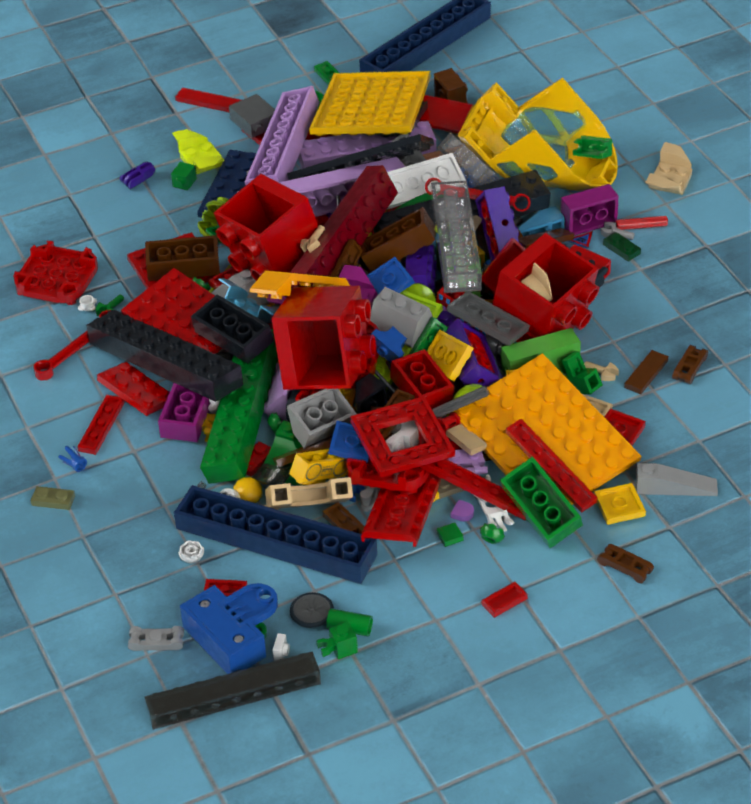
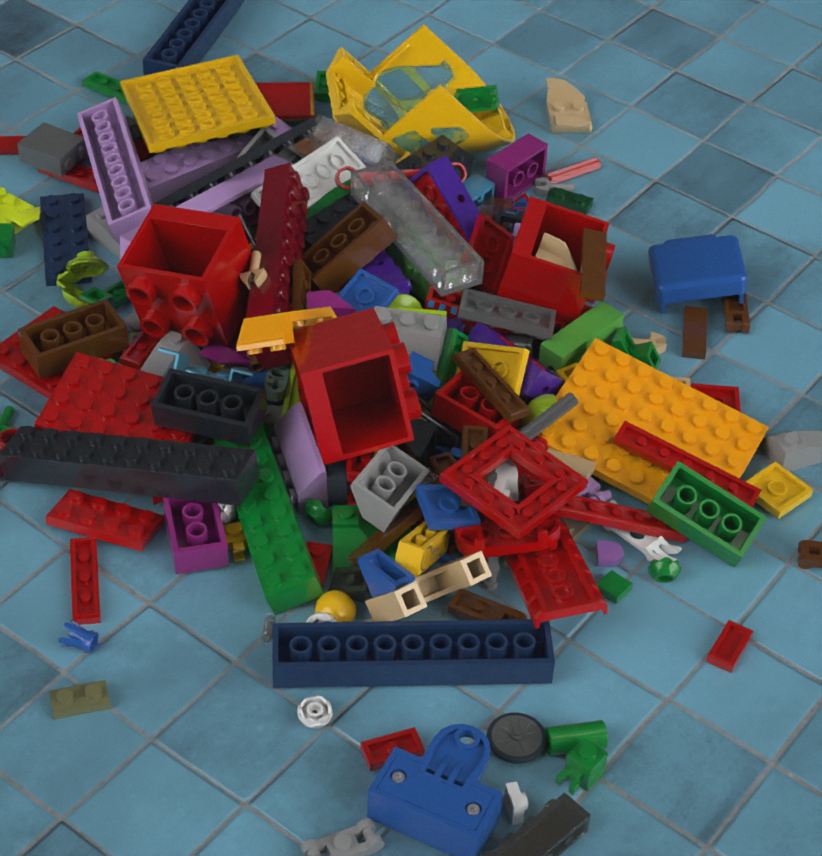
camera: 30 degrees left, 0 degrees up
(279, 471) = (383, 573): none -> blue slope
(436, 366) = (491, 385): none -> reddish brown tile
(450, 86) = (269, 66): reddish brown brick -> none
(559, 296) = (593, 264): none -> reddish brown tile
(672, 323) = (697, 269): none -> blue piece

